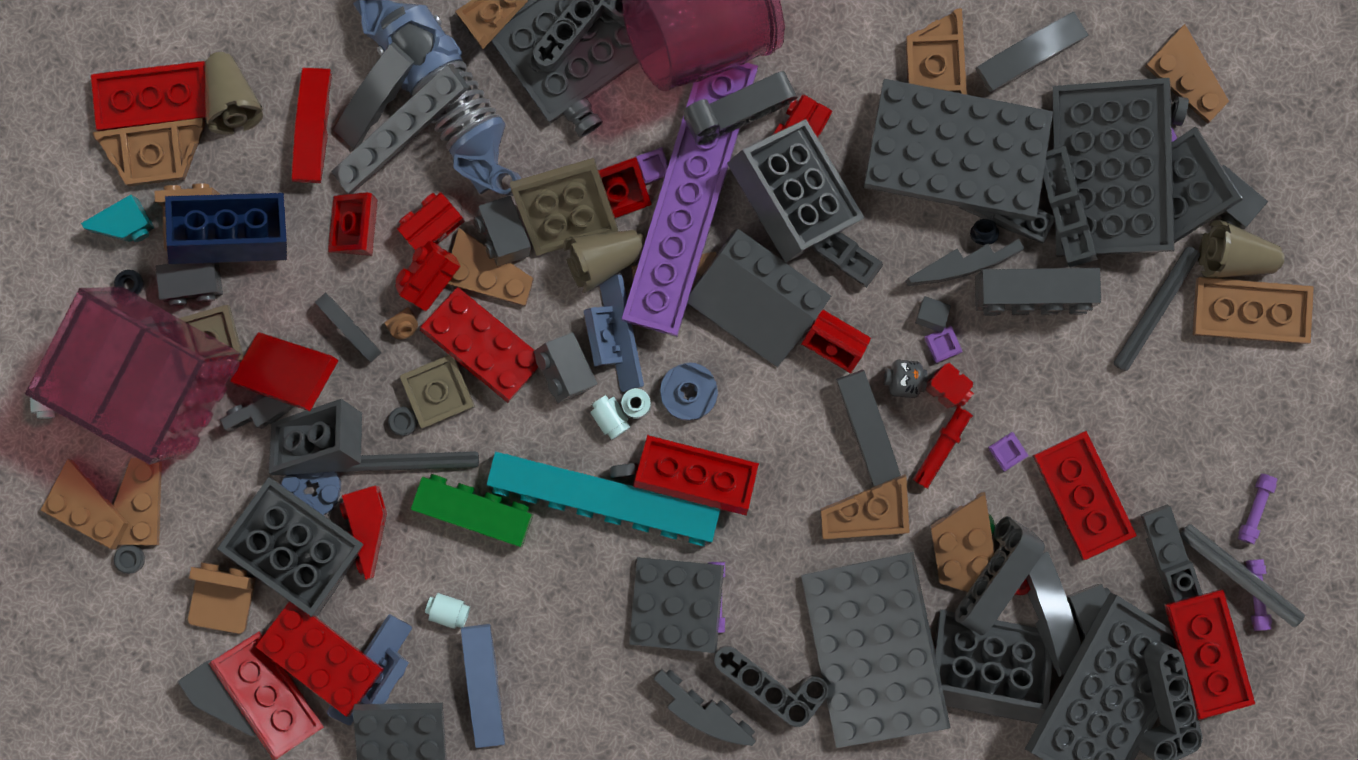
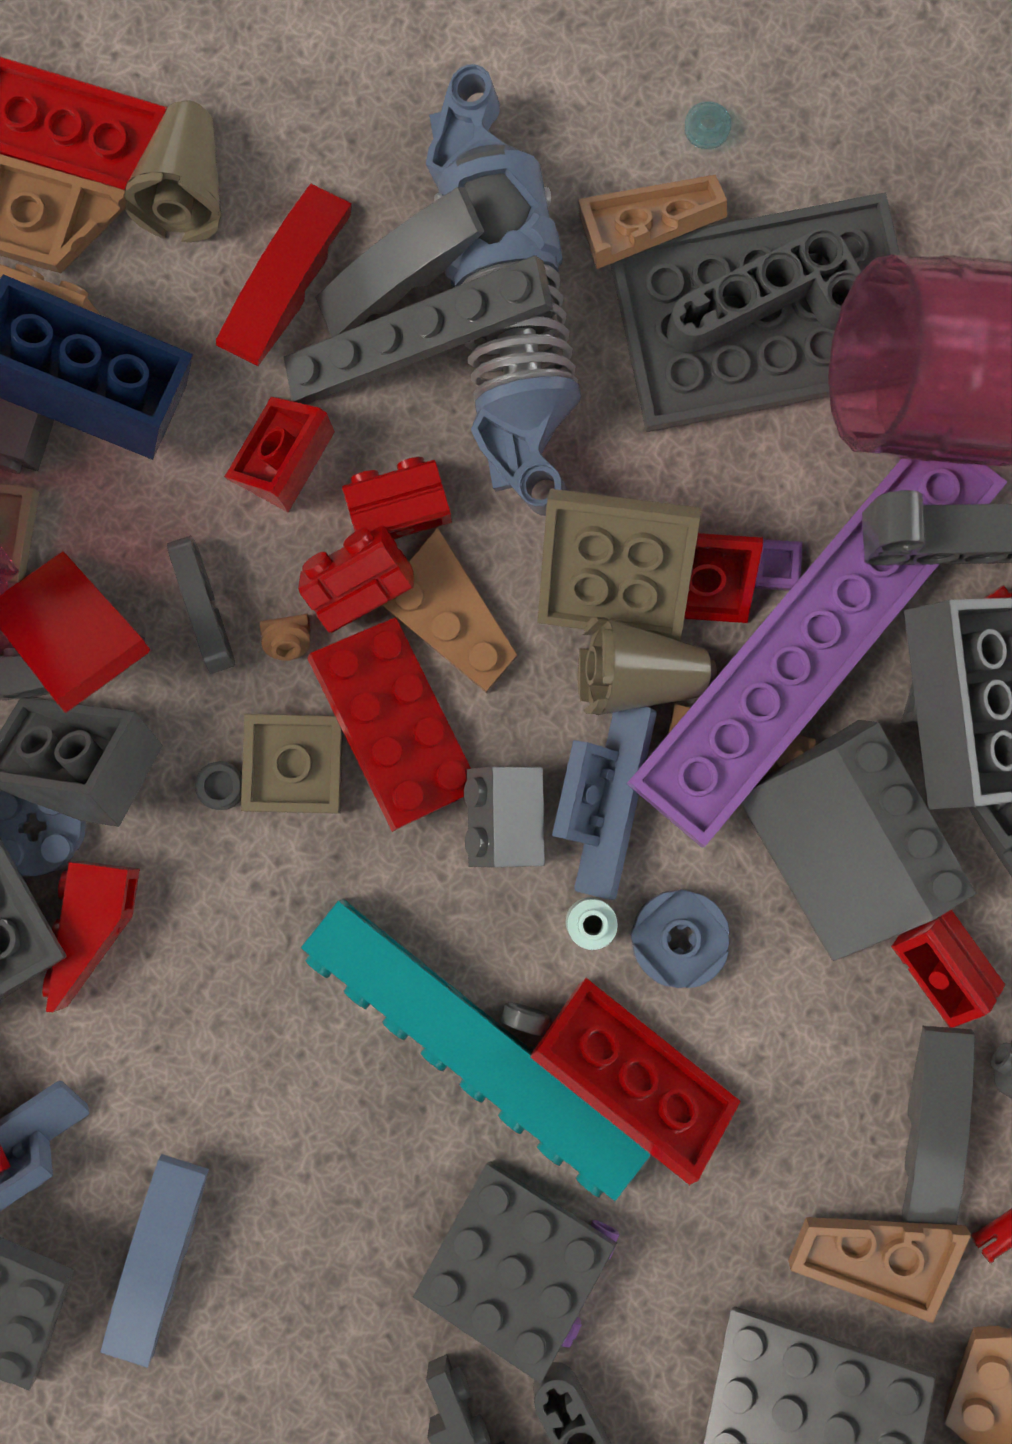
camera: 20 degrees right, 0 degrees up
(416, 461) = (214, 858): dark grey axle -> none
(447, 611) = (153, 1115): light aqua brick -> none
(472, 511) = (261, 975): green brick -> none
(503, 231) = (503, 562): dark grey brick -> none
(583, 117) = (702, 443): dark grey wheel -> none
(610, 417) = (540, 924): light aqua brick -> none

